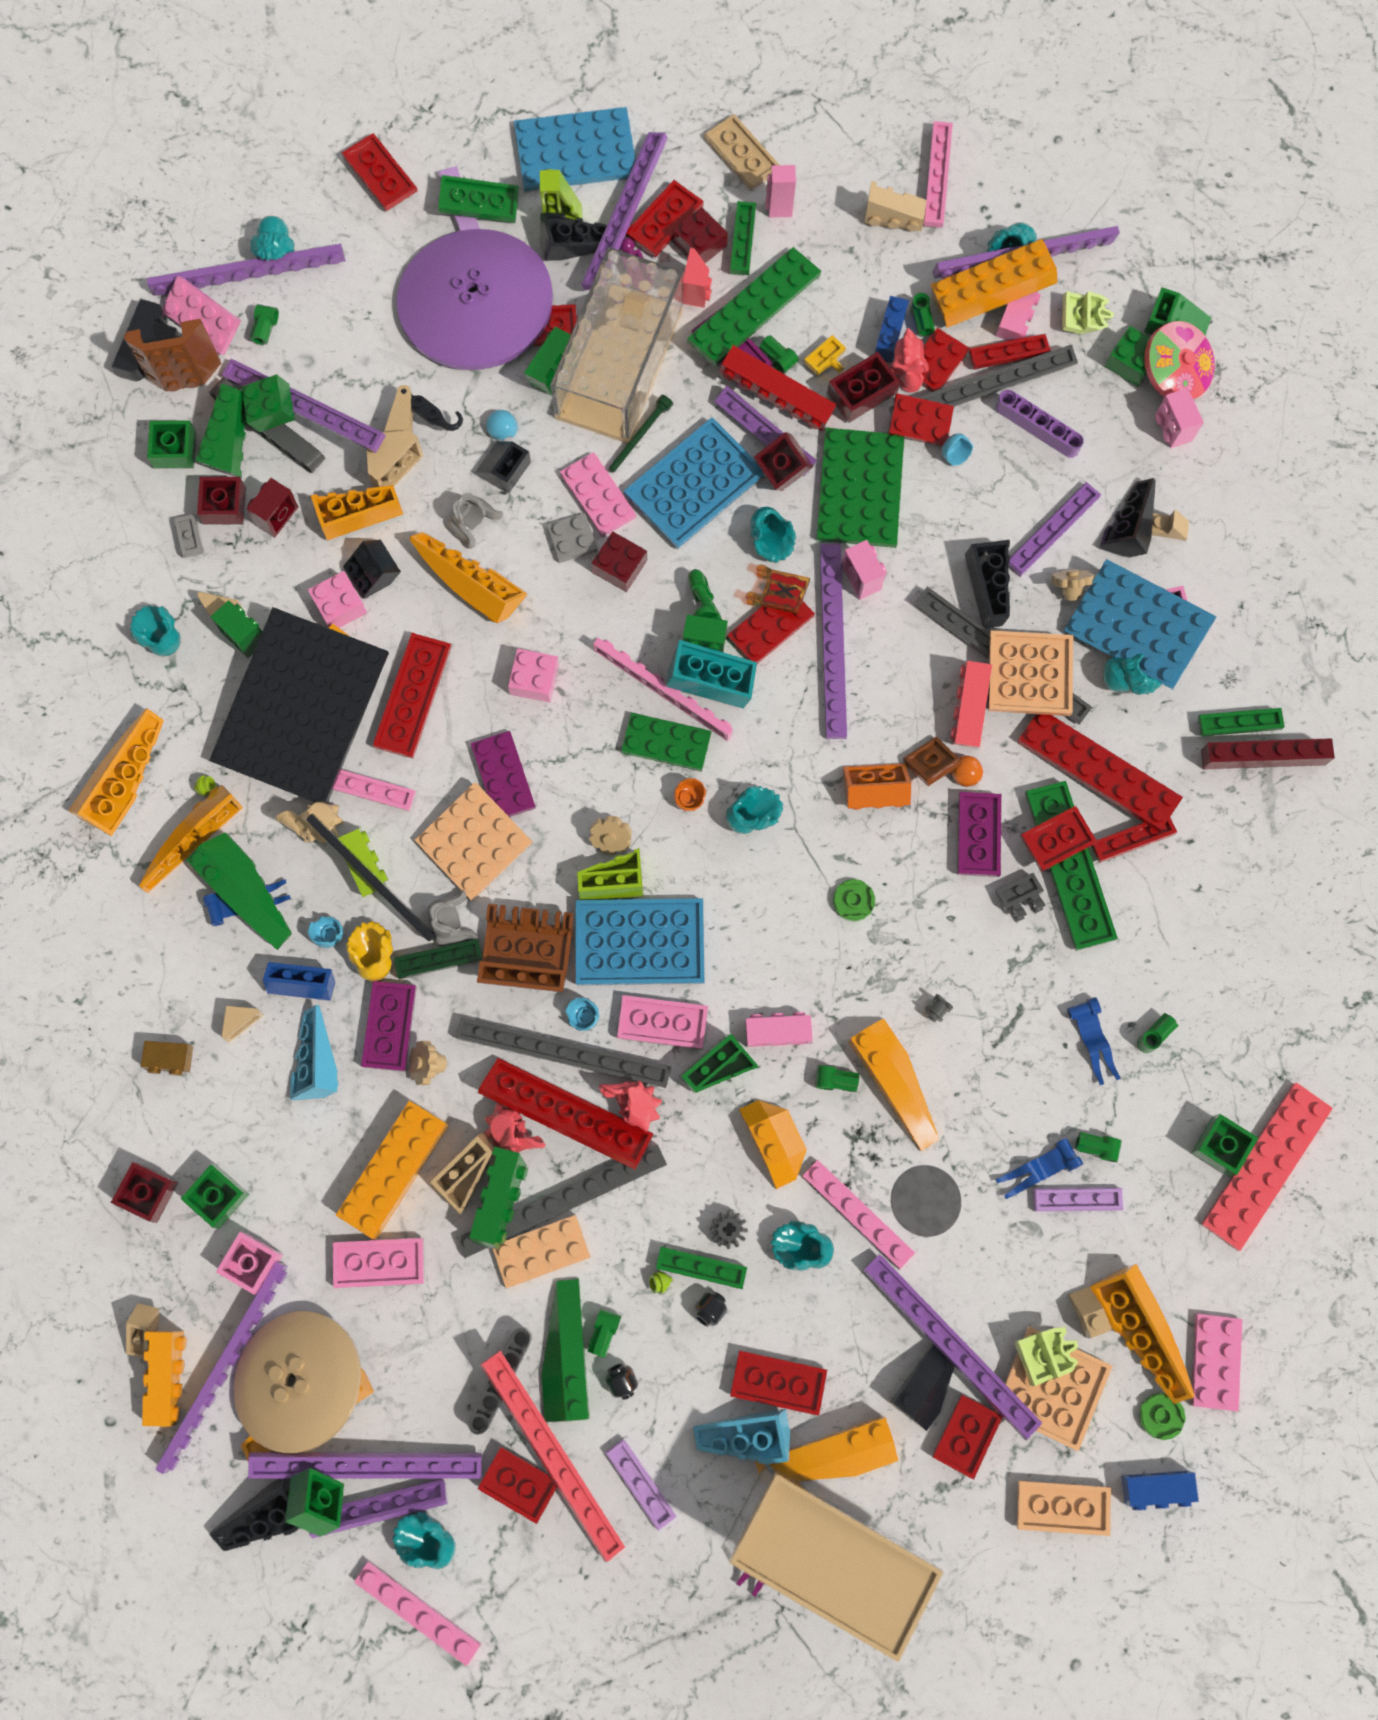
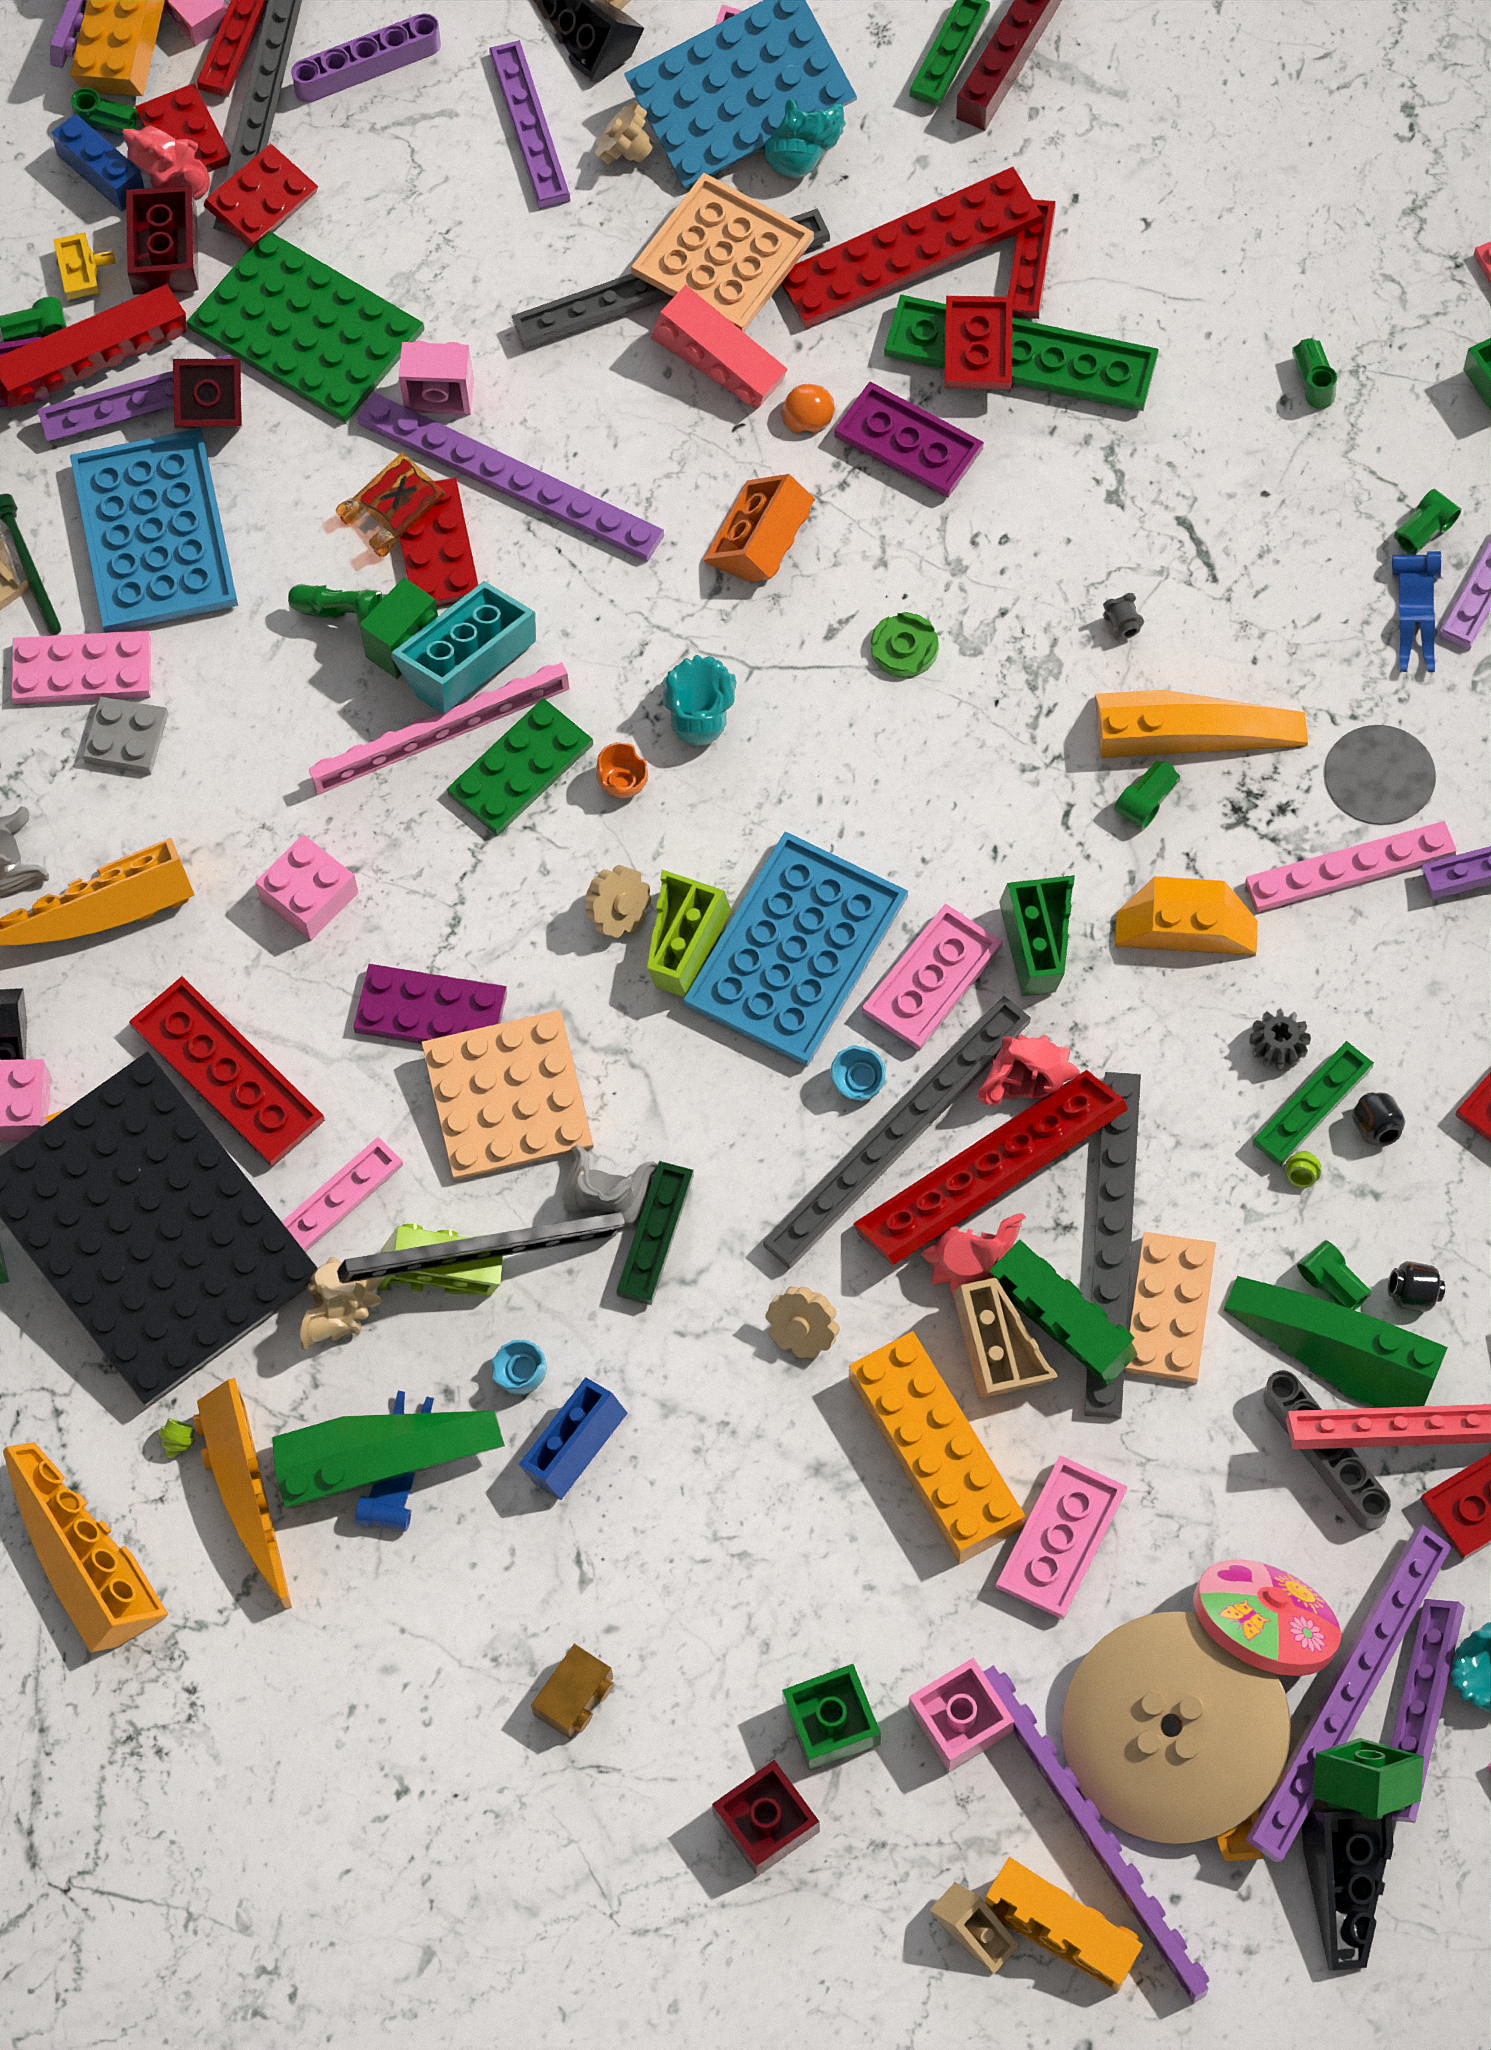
camera: 55 degrees left, 10 degrees down
(238, 1020) = (576, 1560): tan slope -> none
(316, 1066) = (709, 1482): medium azure wedge -> none
(370, 950) = (588, 1314): yellow hair -> none
(379, 1399) = (1267, 1617): none -> dish
(389, 1026) = (715, 1350): magenta plate -> none
(525, 949) = (714, 1100): dark orange slope -> none
(619, 561) = (208, 686): dark red brick -> none
(772, 534) = (304, 466): teal hair -> none
(778, 1030) = (1034, 830): bright pink brick -> none
(801, 1246) = (1357, 953): teal hair -> none
(932, 761) = (769, 440): dark orange tile -> none
(957, 449) = (334, 174): medium azure hair -> none
(990, 580) = (557, 234): black wedge -> none
(1020, 891) = (1020, 433): dark grey plate -> none
(1093, 1036) = (1272, 453): blue flag -> none

